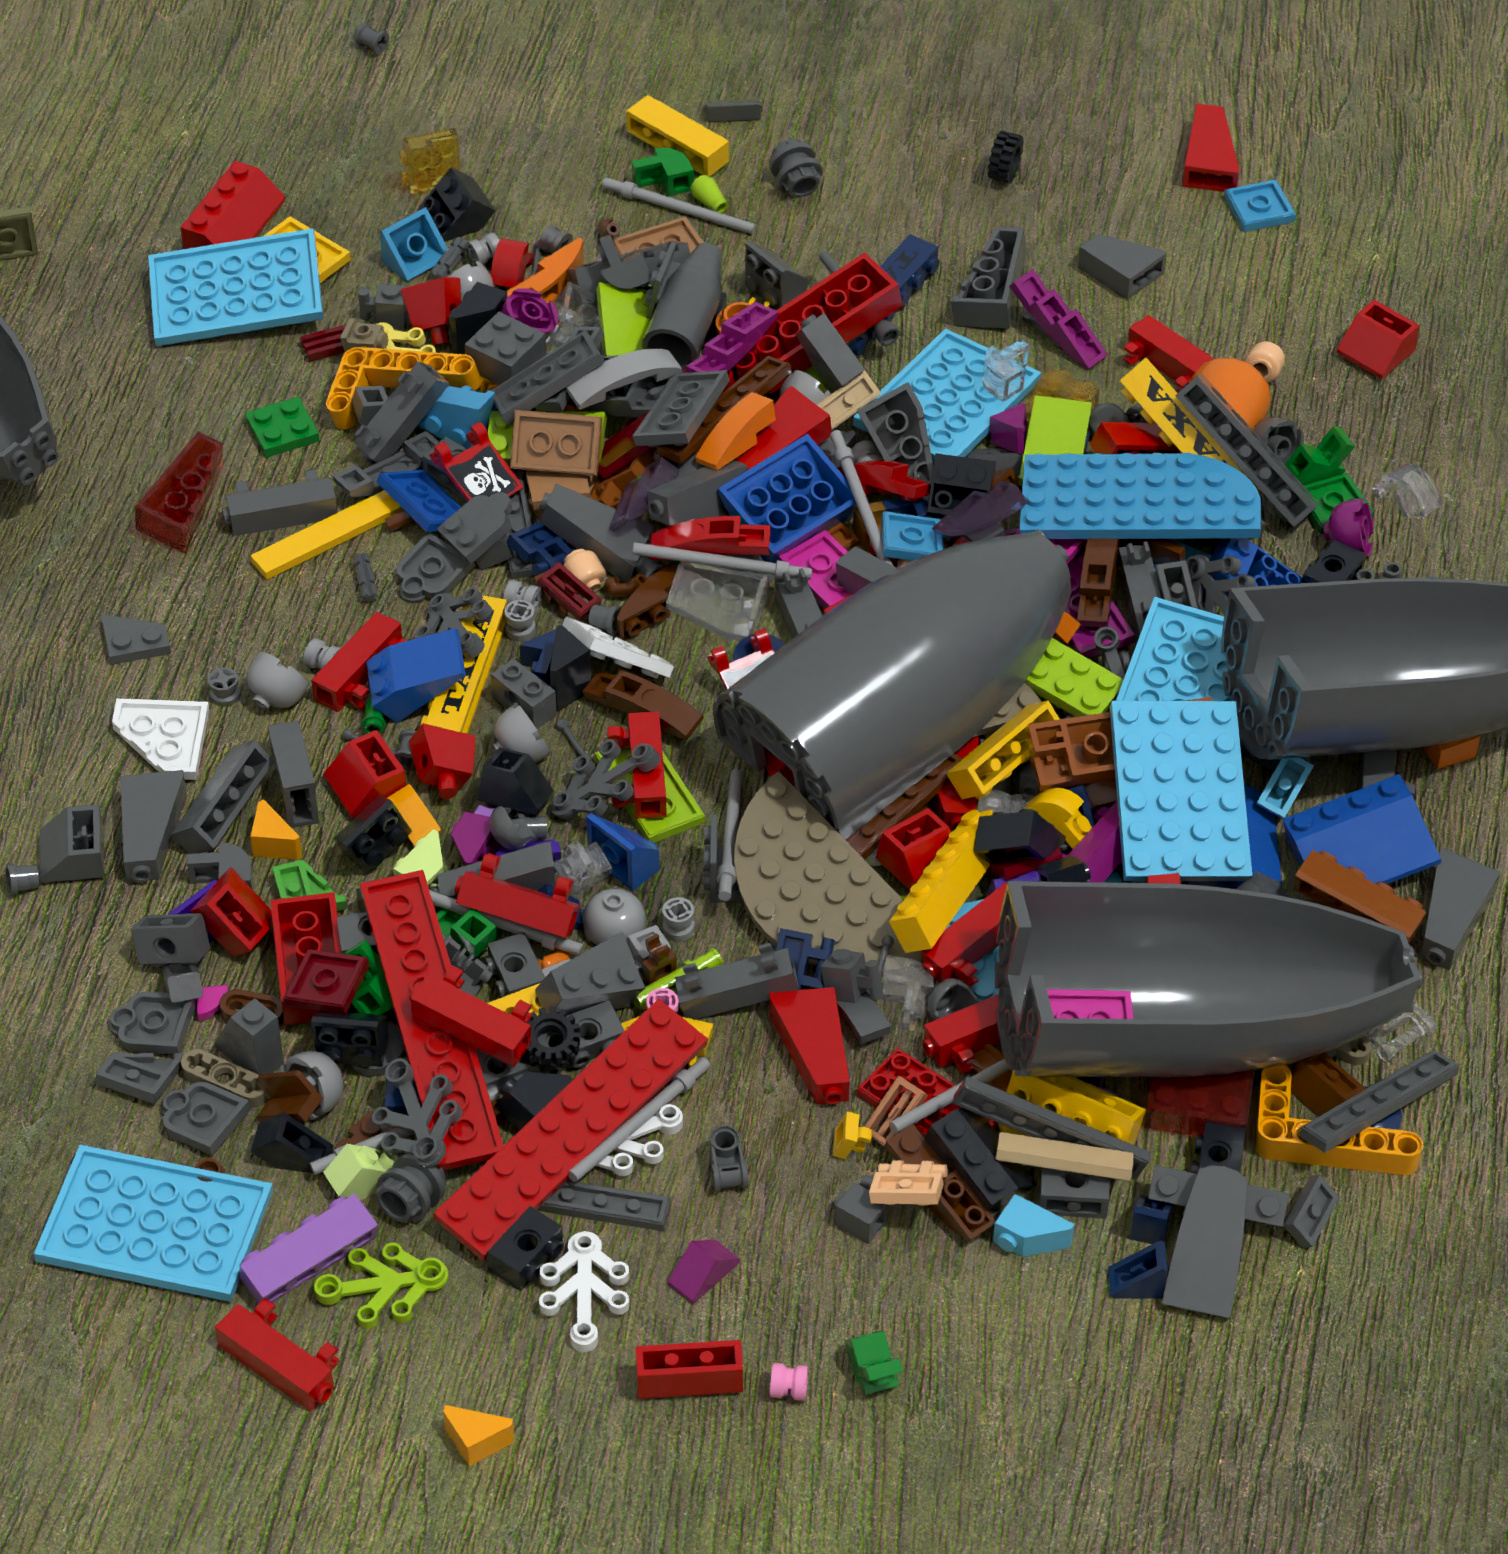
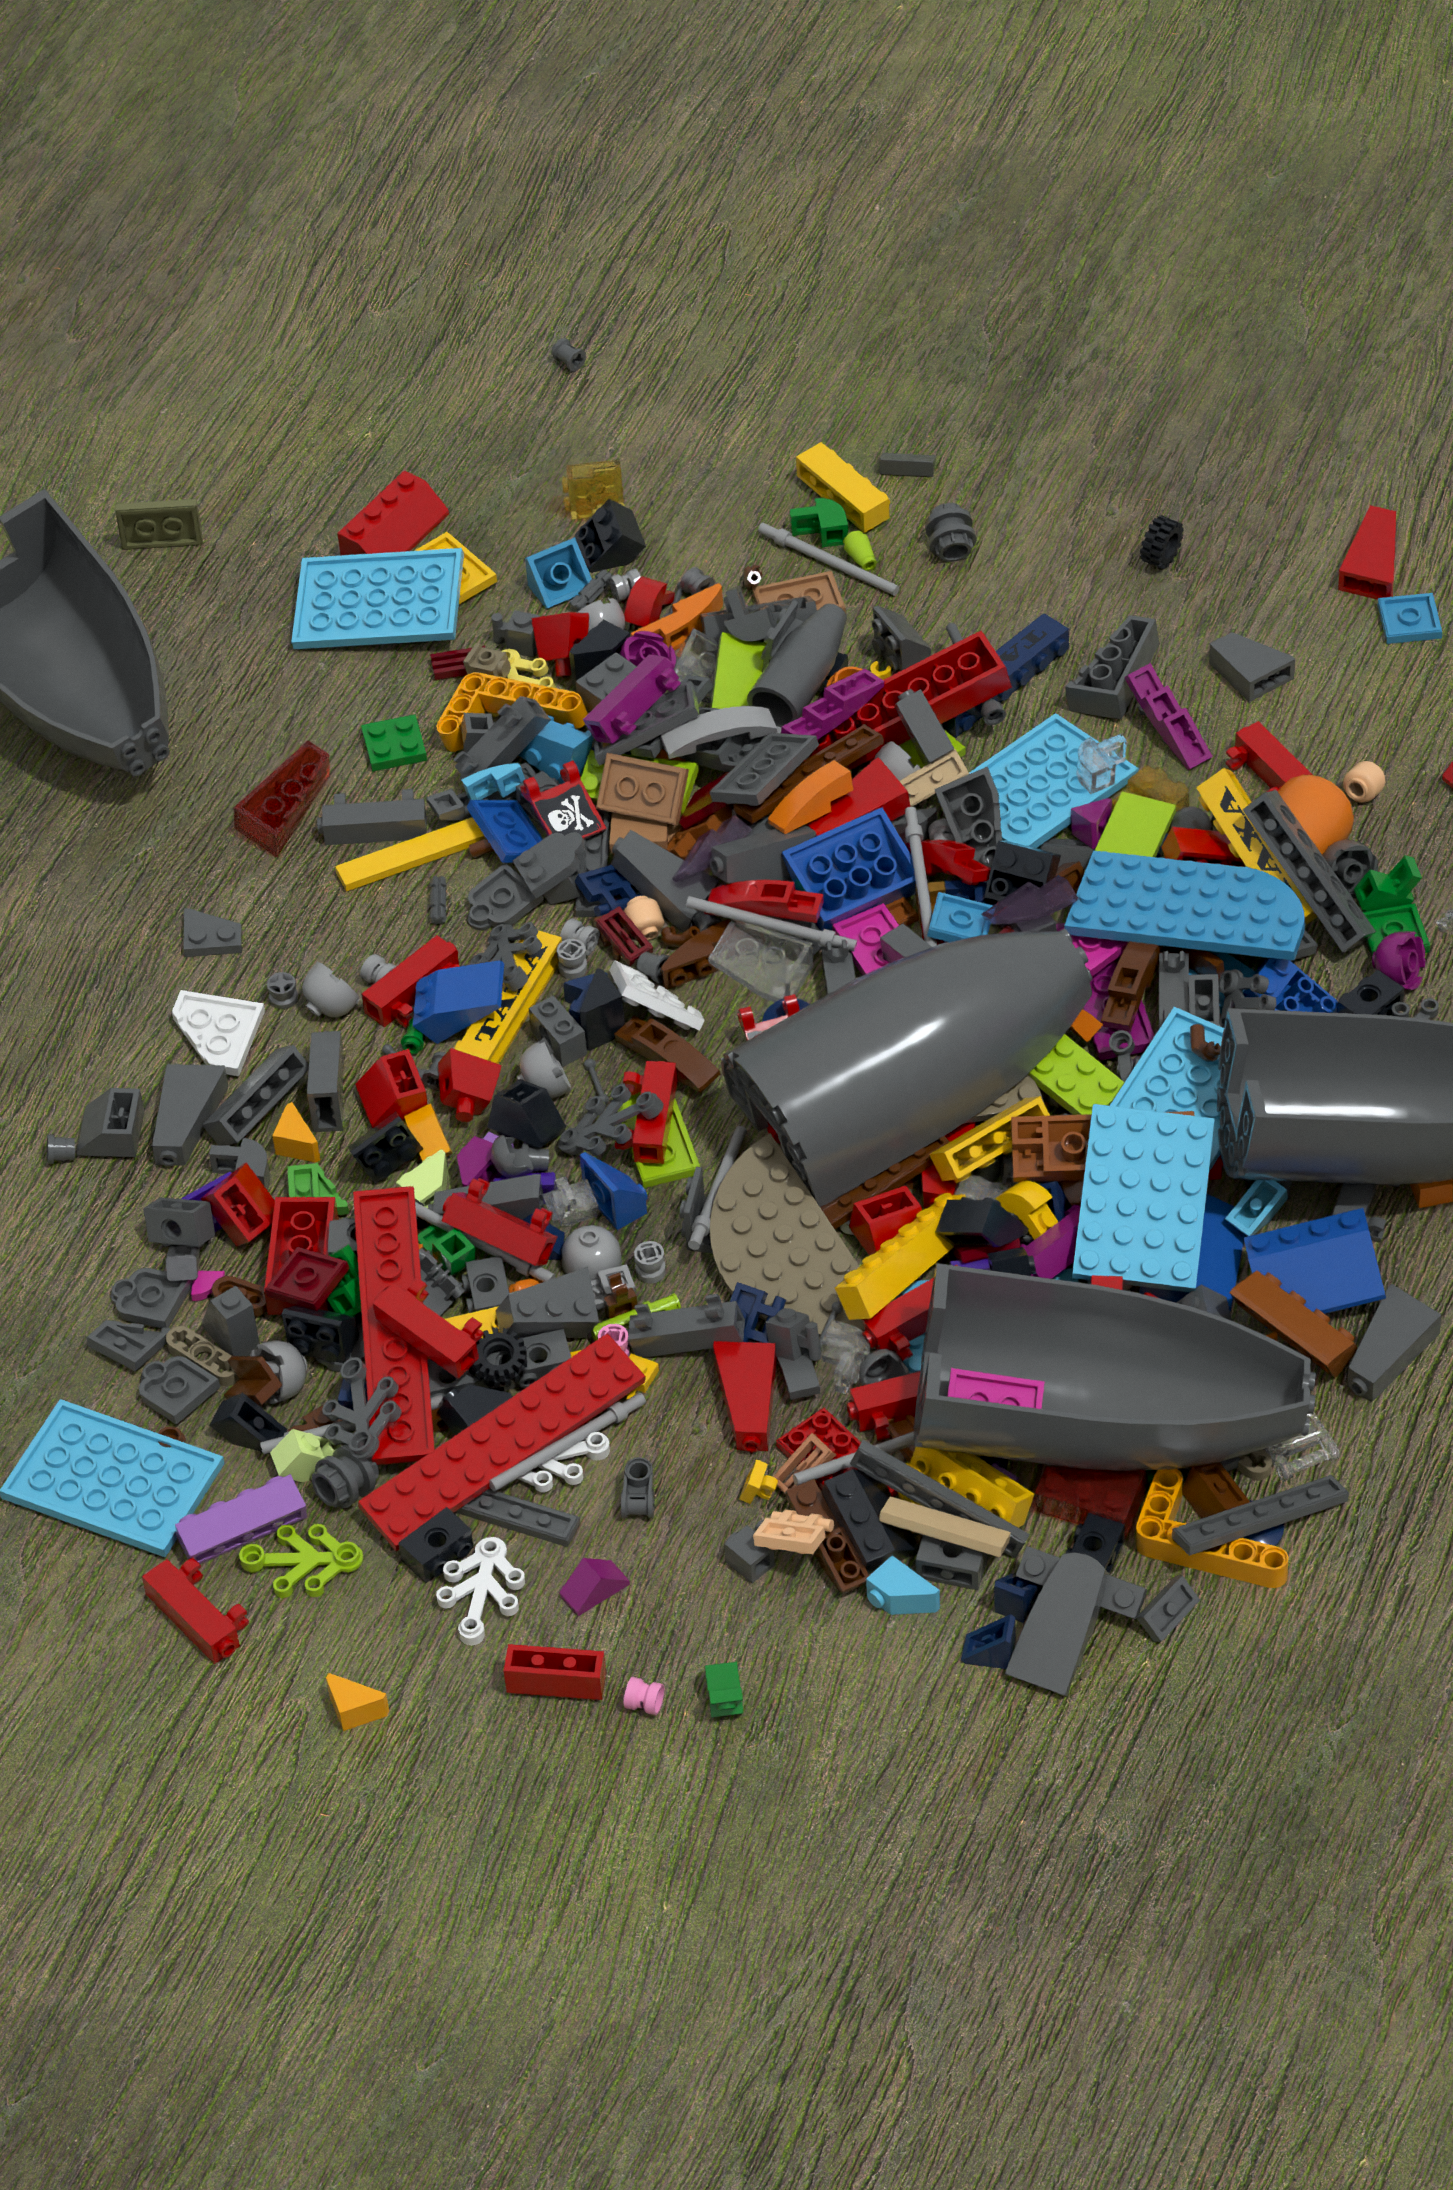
camera: 15 degrees right, 0 degrees up
(403, 449) = (498, 778): none -> medium azure slope
(529, 354) = (631, 699): none -> magenta brick
(1201, 637) = (1200, 1047): none -> reddish brown arm

